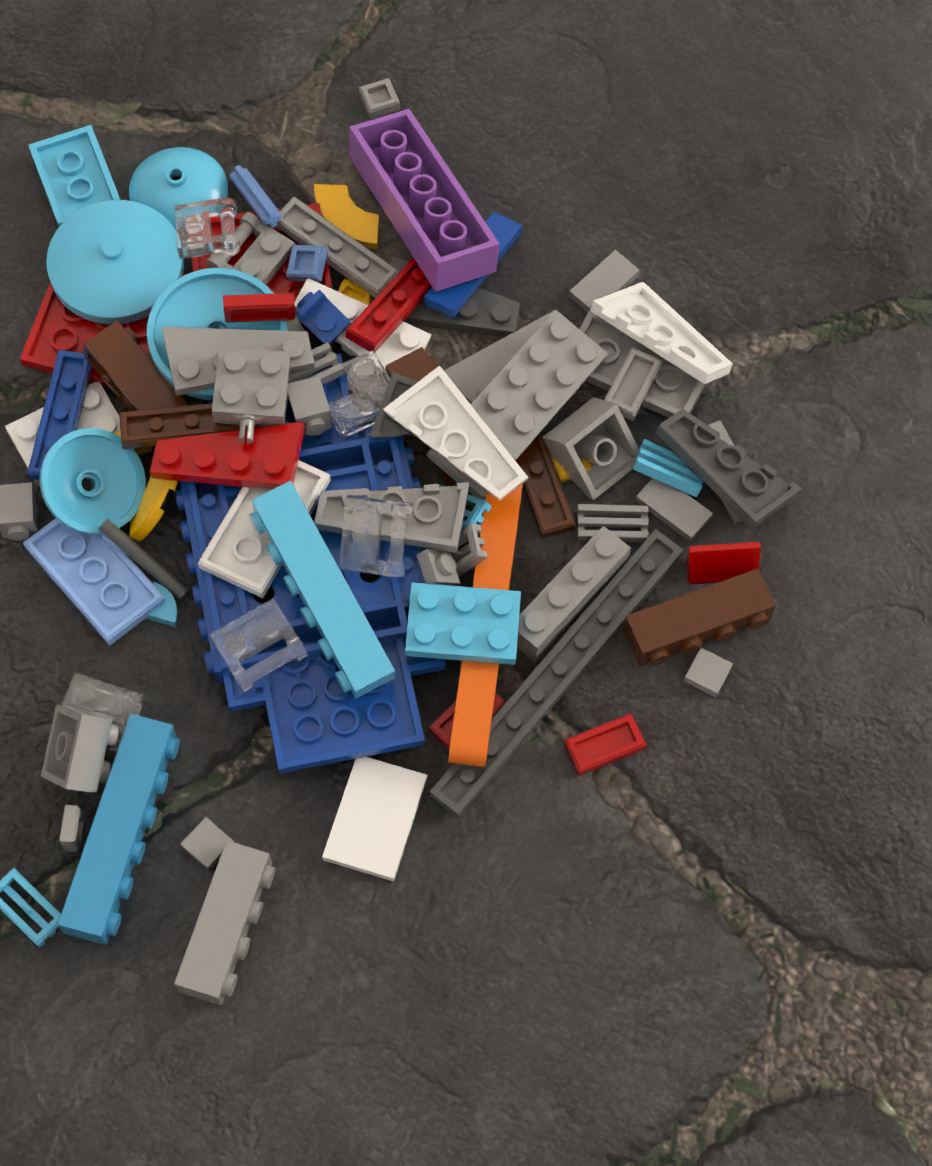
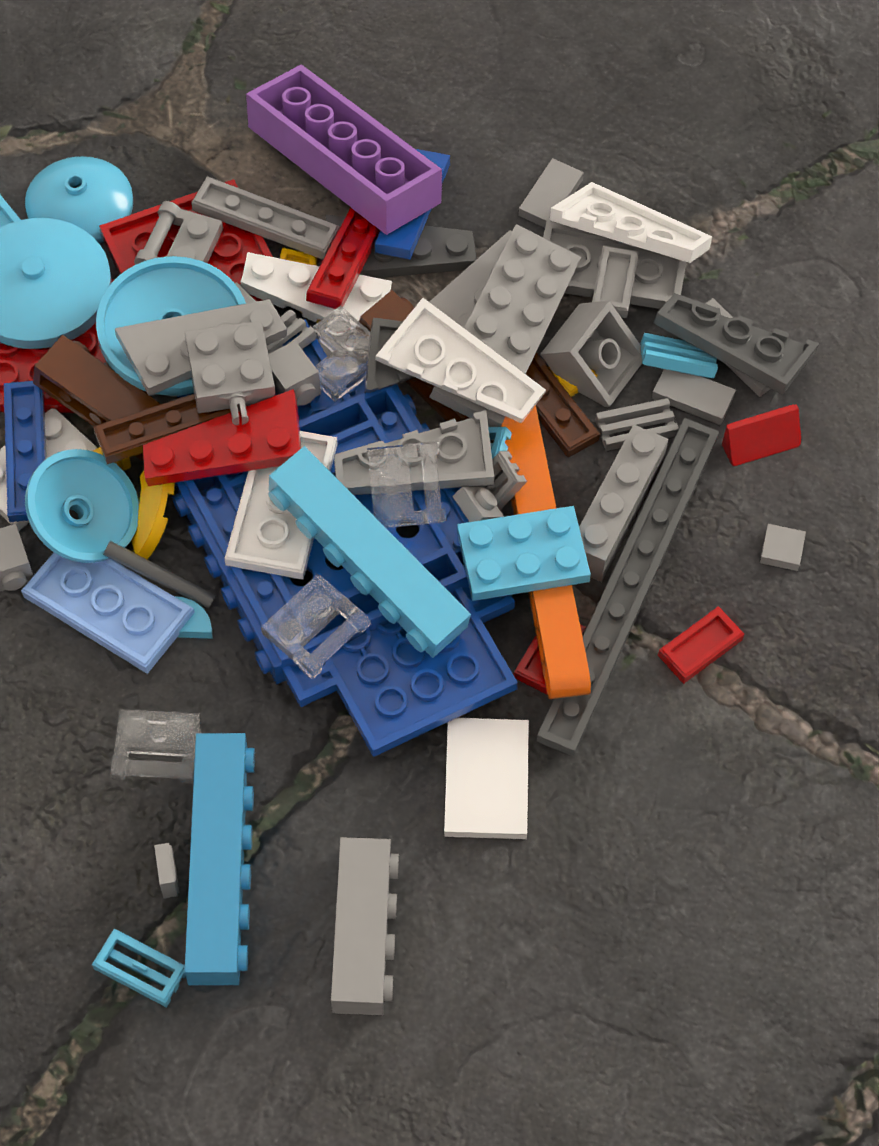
camera: 15 degrees left, 5 degrees down
(78, 748) = (150, 782): light grey brick -> none
(195, 228) = (116, 232): clear plate -> none
(205, 843) = (315, 850): light grey tile -> none
(255, 196) = (166, 186): medium blue axle -> none
(259, 307) = (212, 286): red tile -> none
(306, 262) = (241, 237): medium blue tile -> none
(322, 317) = (276, 284): blue bracket -> none
(343, 213) = (257, 180): yellow tile -> none
(379, 98) = (261, 65): light grey tile -> none
(699, 618) = (756, 495): reddish brown brick -> none

